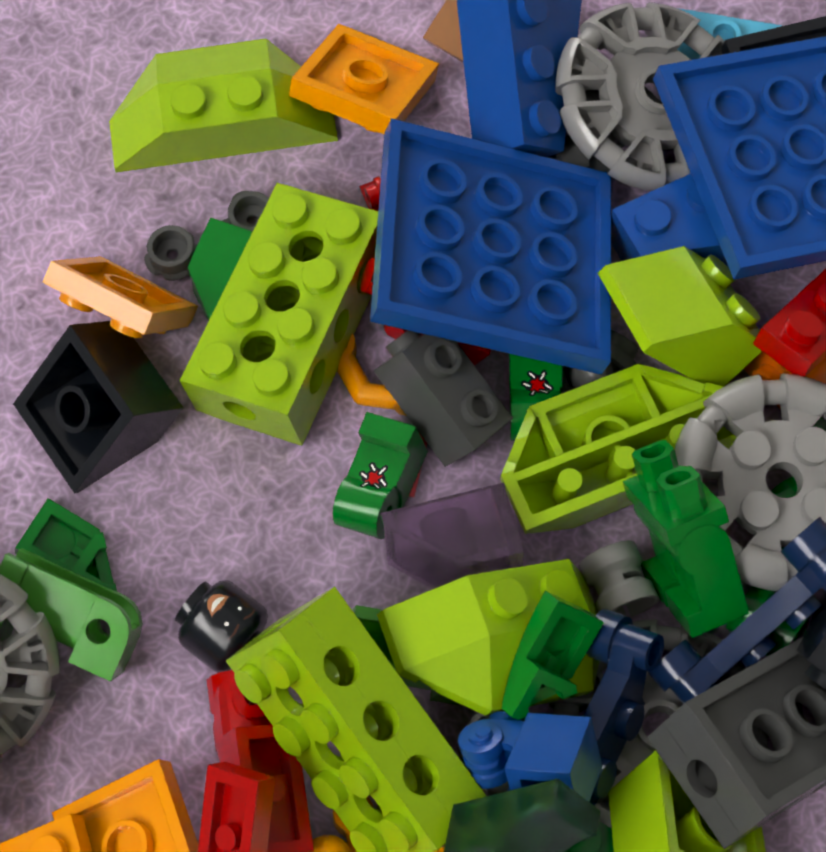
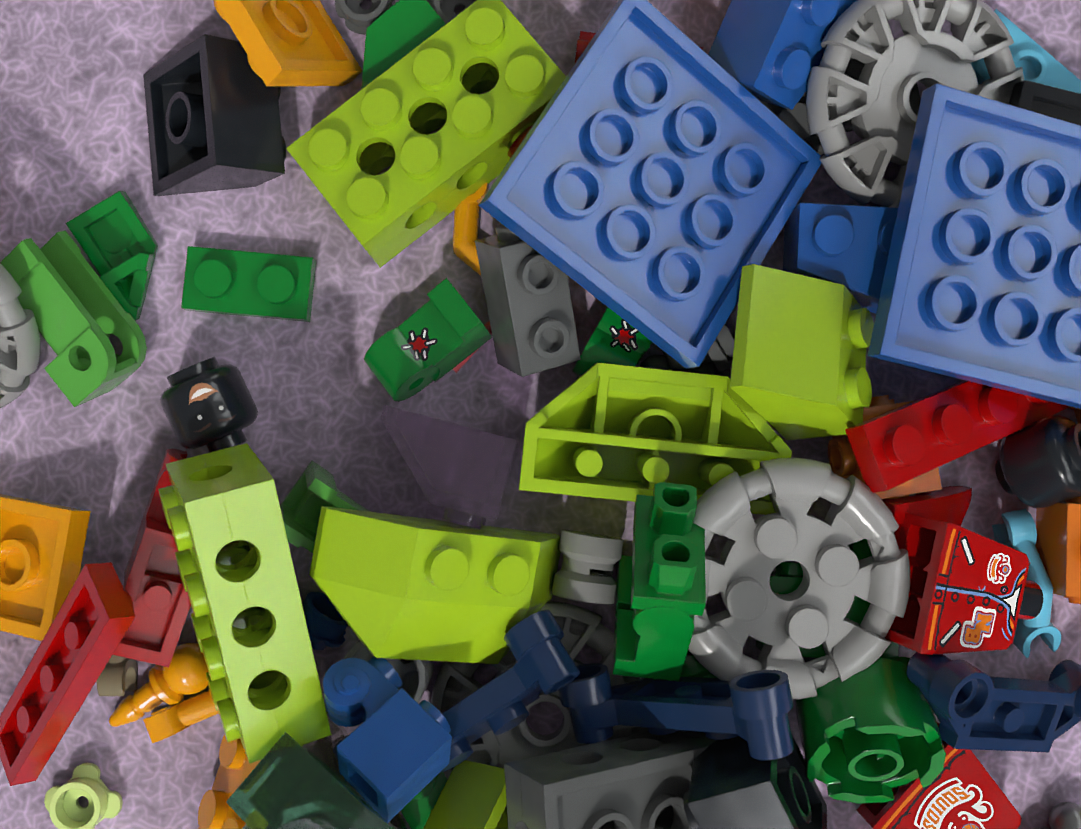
camera: 30 degrees right, 20 degrees up
(197, 518) = (248, 284): none -> green plate
(549, 654) = (459, 632): green slope -> none

